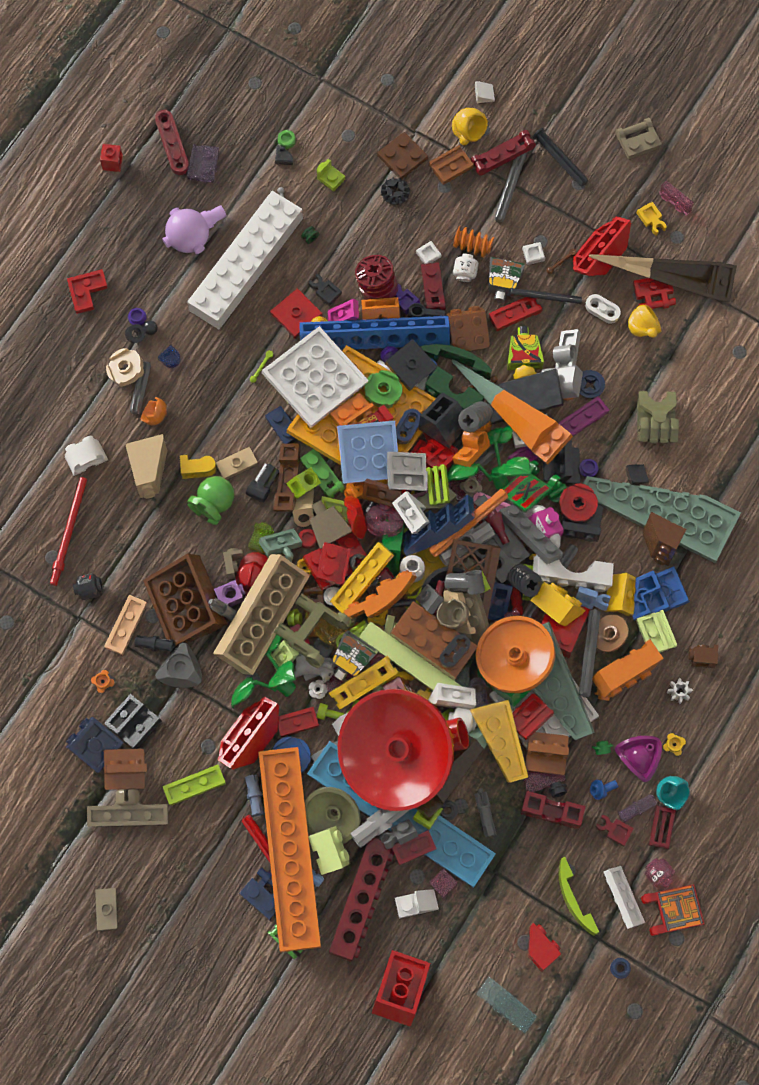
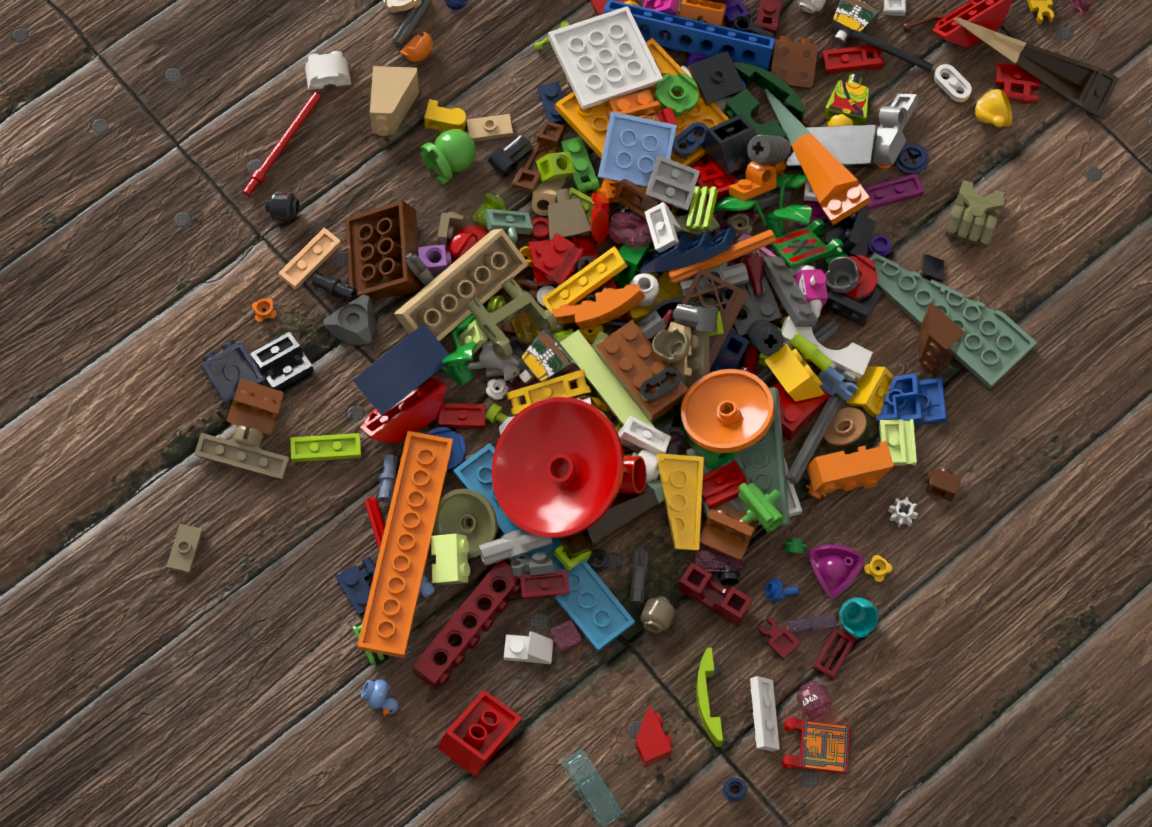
camera: 15 degrees right, 5 degrees down
(237, 702) = (401, 369): none -> dark blue slope
(307, 984) = (376, 695): none -> medium blue animal
(511, 841) = (657, 614): none -> dark tan head
(565, 581) = (810, 351): none -> lime pin
(567, 726) = (760, 506): none -> bright green pin
(569, 506) = (842, 275): none -> dark grey hair

